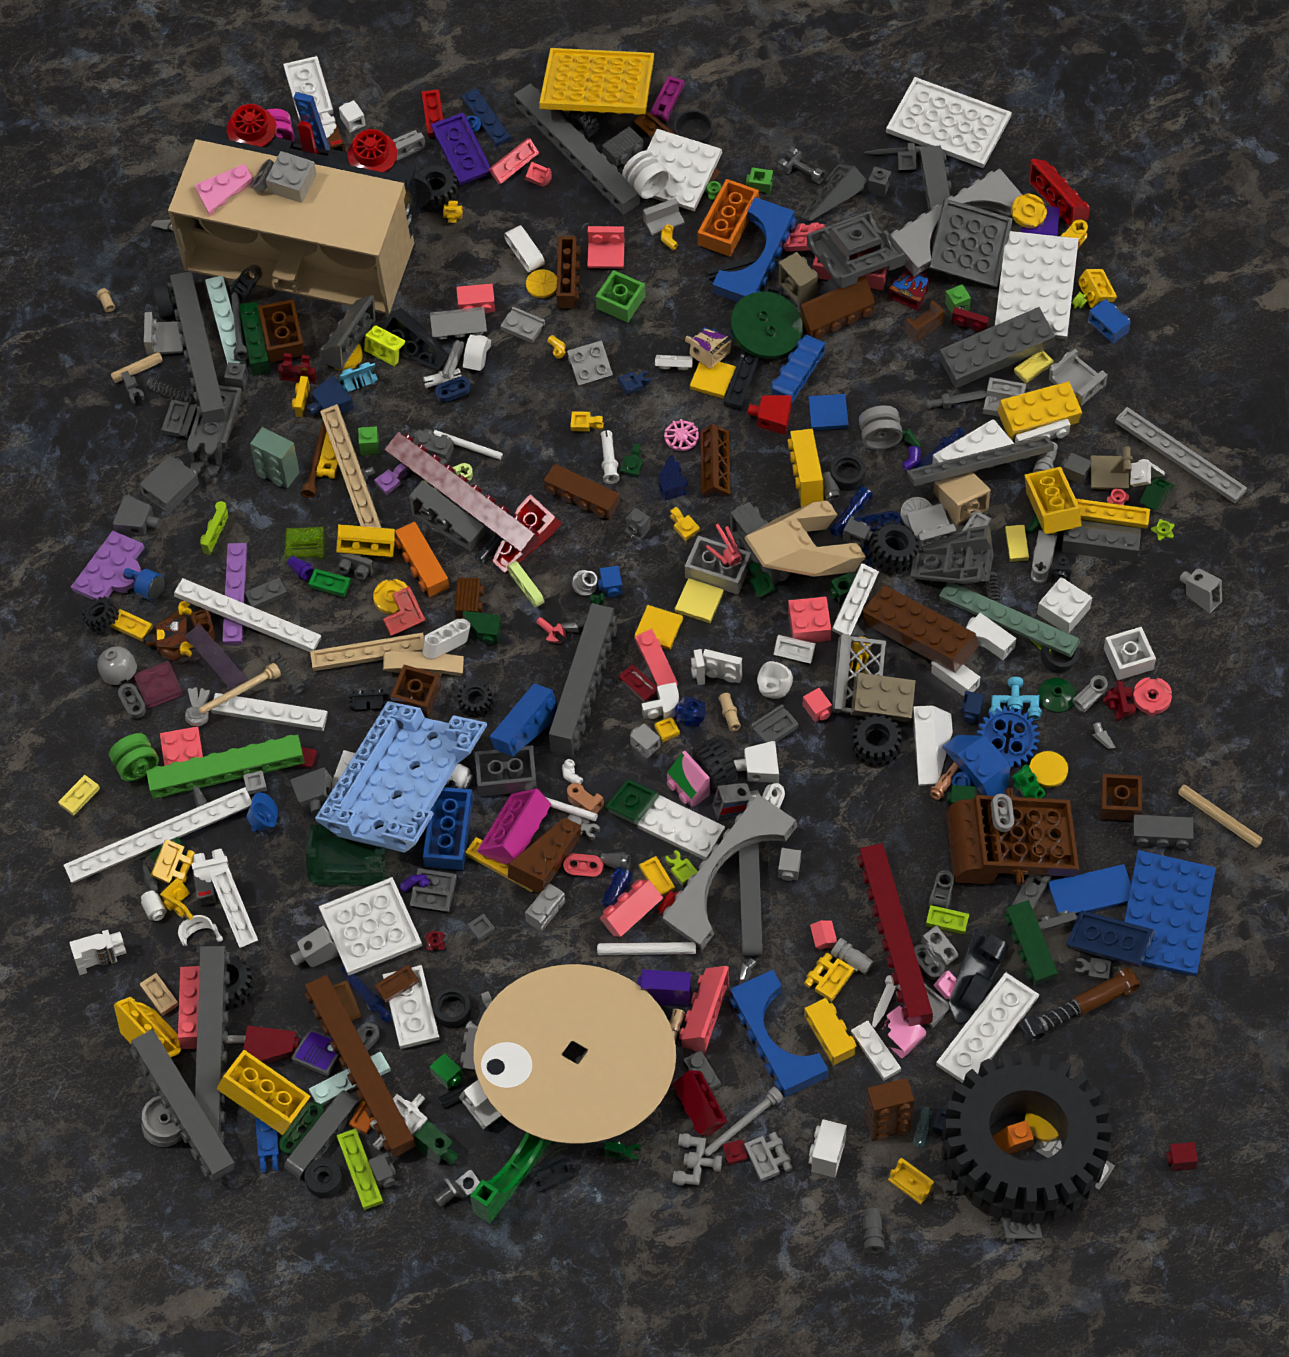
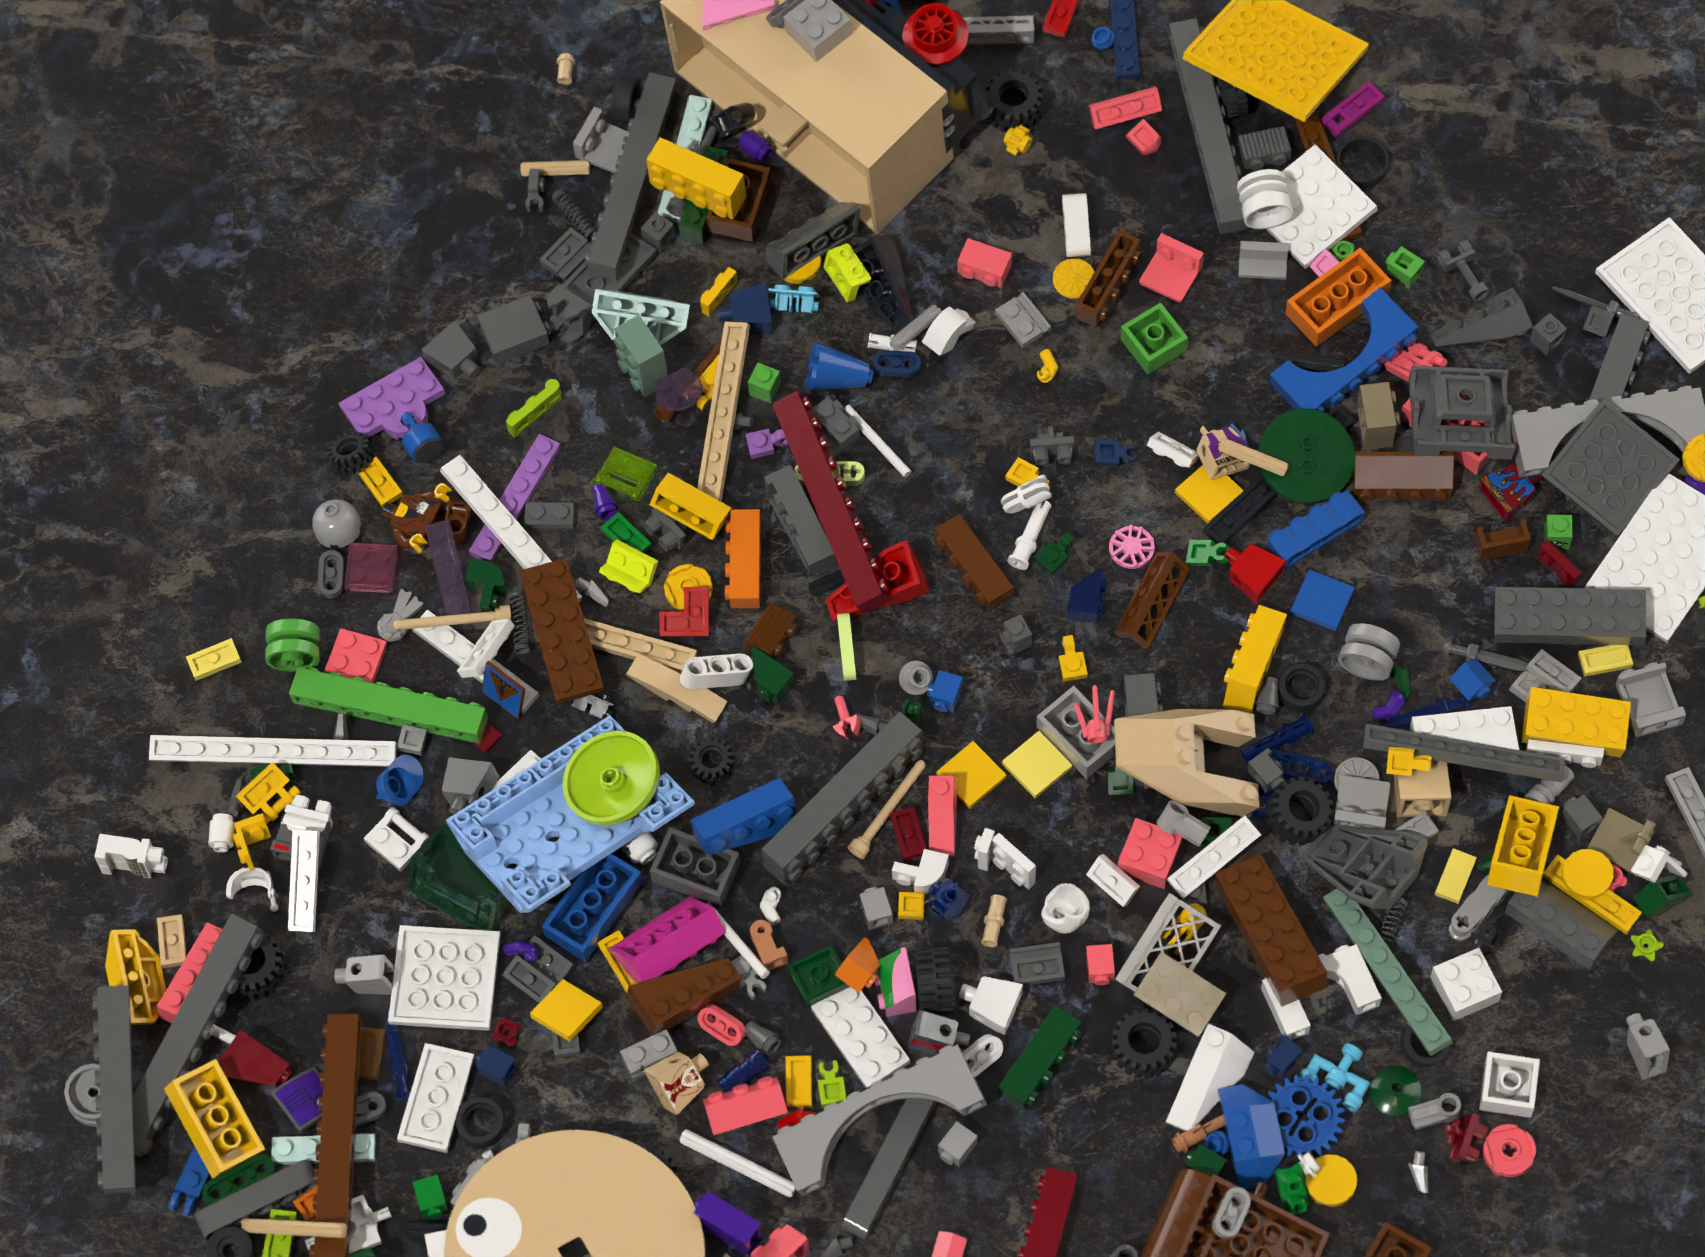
camera: 30 degrees right, 5 degrees up
(239, 435) = (662, 316): none -> light aqua wedge
(248, 324) = (696, 178): none -> yellow brick
(248, 653) = (488, 579): none -> dark green brick
(272, 292) = (755, 146): none -> dark purple brick
(274, 696) = (485, 648): none -> white plate
(280, 858) = (390, 844): none -> white plate
(292, 373) = (721, 255): dark red plate -> none
(303, 718) = (503, 690): none -> piece
(312, 470) = (679, 390): none -> clear purple dish
(322, 660) = (561, 630): none -> reddish brown plate
(324, 627) = (592, 591): none -> light grey bar
(344, 600) = (629, 567): none -> neon yellow bracket
(364, 1135) = (300, 1228): none -> tan axle
(396, 983) = (433, 1062): reddish brown tile -> none
(413, 410) = (835, 370): none -> blue cone
(416, 688) = (649, 715): reddish brown brick -> none
(417, 736) = (611, 778): none -> lime dish
(440, 965) = (495, 1065): none -> dark blue brick
(458, 322) = (946, 283): light grey brick -> none
(461, 148) = (1070, 64): dark purple plate -> none
(469, 906) = (566, 1010): none -> yellow tile
(575, 913) = (677, 1080): none -> tan torso
(589, 362) = (1073, 405): light grey hinge -> none
(590, 393) = (1052, 444): none -> dark grey hips
(593, 432) = (1027, 495): none -> white arm
(610, 707) = (860, 846): none -> tan piece
(658, 780) = (859, 967): none -> orange slope
(666, 237) = (1253, 288): yellow arm -> none
(706, 201) = (1324, 262): none -> bright pink plate
(733, 415) = (1204, 551): none -> plate
(734, 338) = (1253, 457): none -> tan axle
(812, 783) = (1039, 1058): none -> dark green brick
(818, 587) = (1177, 820): none -> light grey piece
(946, 481) = (1402, 761): none -> yellow plate
(957, 416) = (1473, 680): none -> blue brick
(1033, 763) = (1308, 1164): none -> white plate
(1102, 500) = (1587, 873): none -> yellow tile

